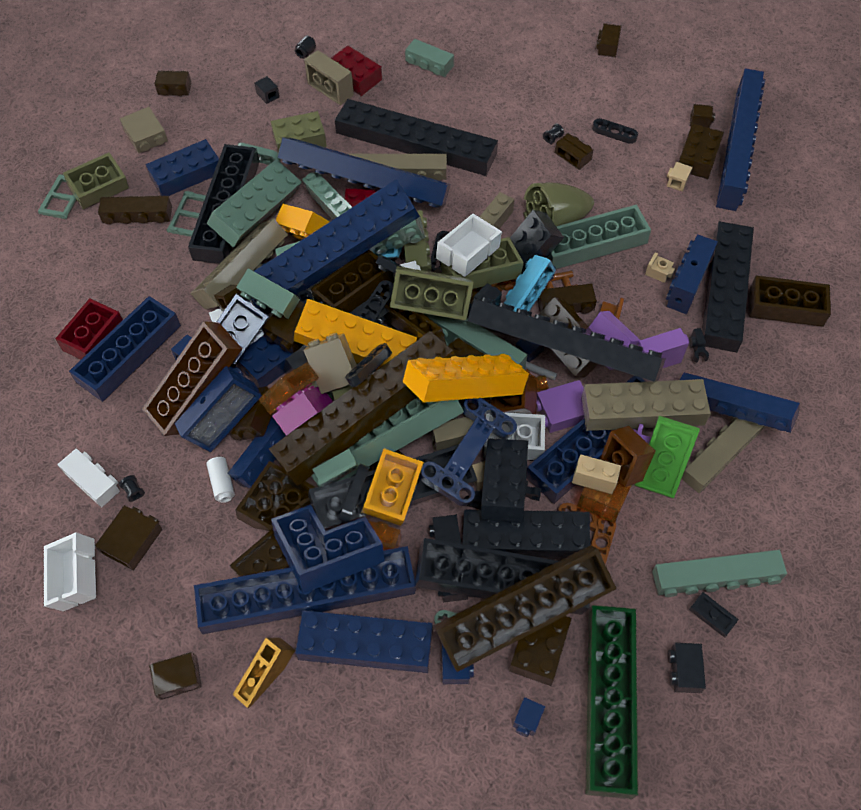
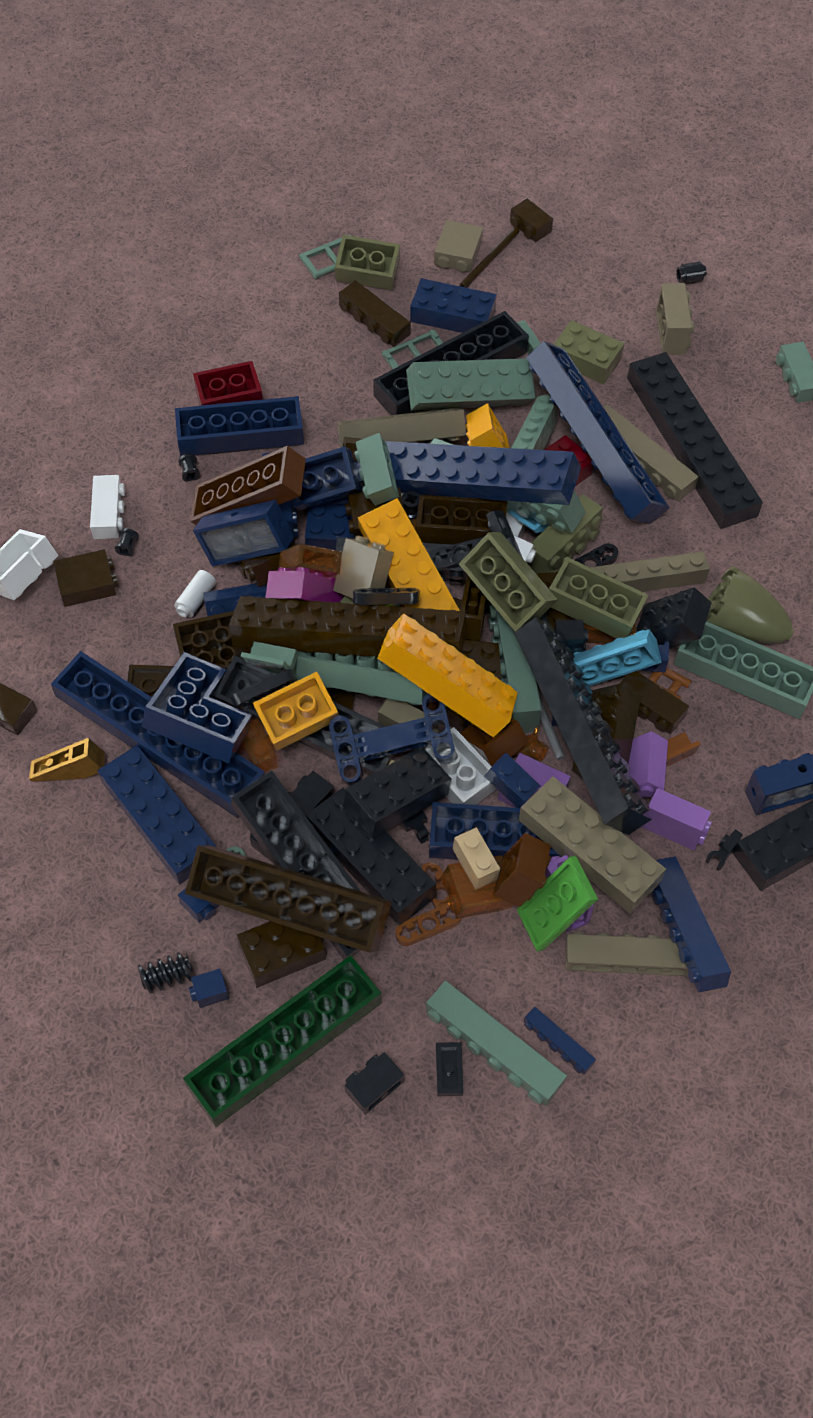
camera: 45 degrees right, 0 degrees up
(119, 403) = (188, 464): none -> black bush
(170, 121) = (490, 257): none -> dark brown piece
(266, 89) = (607, 288): black brick -> none
(364, 70) = (713, 331): dark red brick -> none
(468, 244) = (591, 567): white piece -> none
(490, 736) = (165, 972): none -> black piece
(559, 410) = (512, 780): none -> dark blue brick
(660, 268) = (774, 744): tan brick -> none
(746, 536) = (559, 1041): none -> dark blue piece

